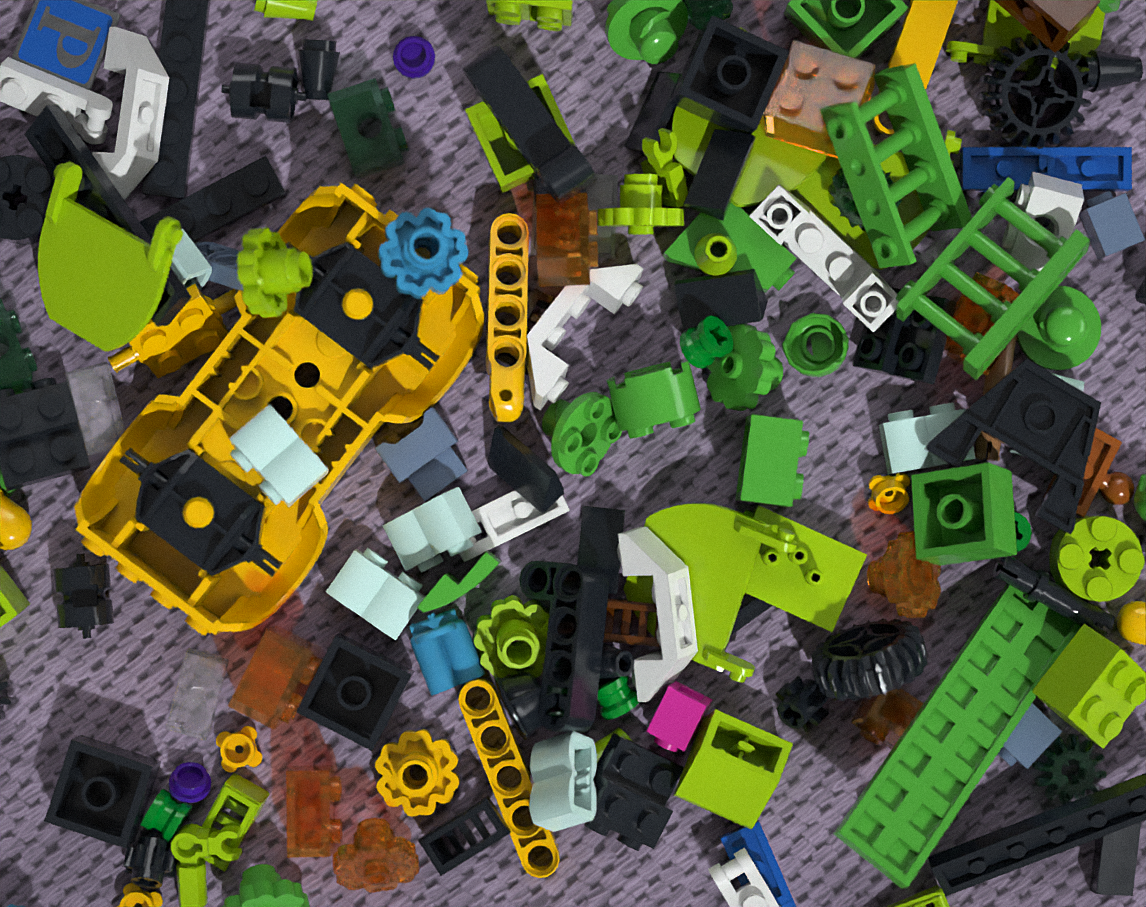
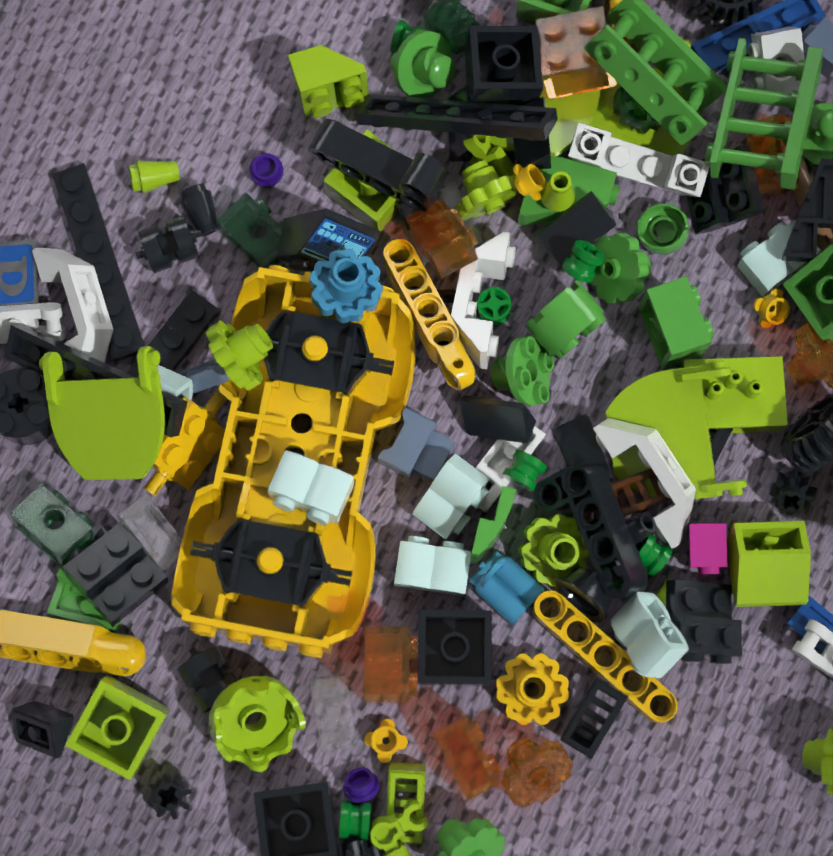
camera: 25 degrees left, 10 degrees down
(106, 685) = (265, 739): none -> lime plate
(429, 181) = (318, 233): none -> slope
(523, 541) = (524, 470): none -> green wheel
(587, 333) = (493, 299): none -> green wheel
(648, 110) = (457, 117): none -> black plate
(689, 226) = (529, 181): none -> yellow plate

